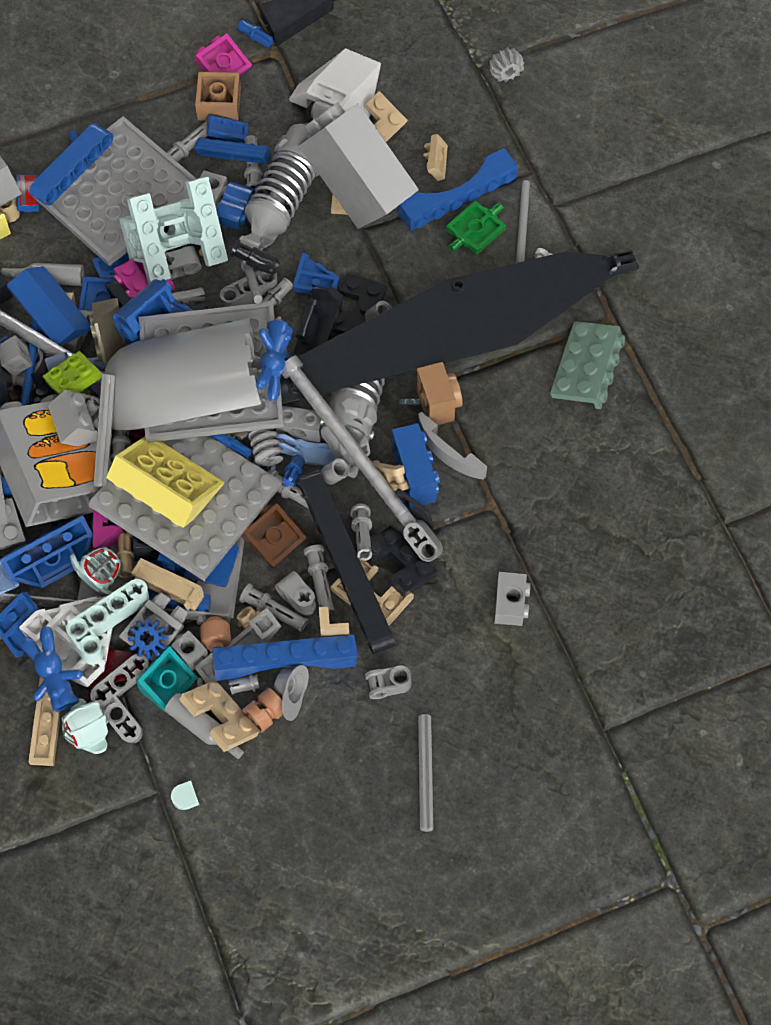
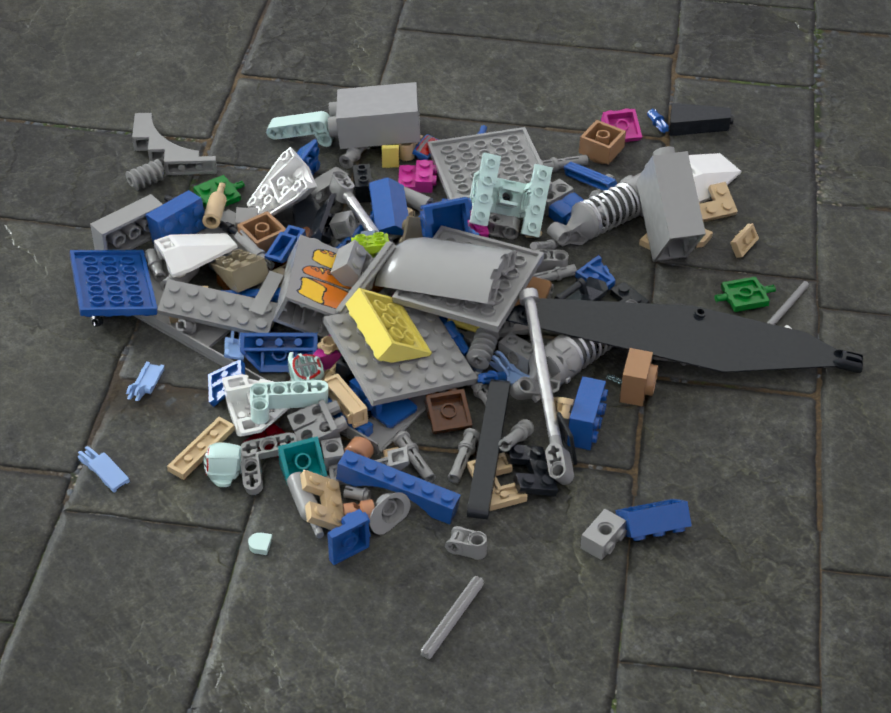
camera: 30 degrees right, 20 degrees down
(43, 239) = (418, 177): none -> dark pink plate
(49, 666) = (224, 412): blue animal -> none
(71, 164) = (466, 136): blue beam -> none
(99, 528) = (327, 345): none -> tan plate
(153, 631) = (300, 428): blue gear -> none
(226, 128) = (595, 163): blue plate -> none
(255, 257) = (556, 236): black piece -> none
(273, 361) = (517, 282): blue animal -> none
(276, 737) = (350, 537): none -> blue plate
(297, 594) = (439, 456): light grey piece -> none
(328, 629) = (444, 479): tan panel -> none
(425, 207) = (713, 266): blue arch -> none
(469, 466) = (629, 433): light grey slope -> none
(506, 64) = (838, 205): light grey gear -> none
(546, 552) = (655, 518): none -> blue slope
(588, 363) = (777, 414): sand green bracket -> none

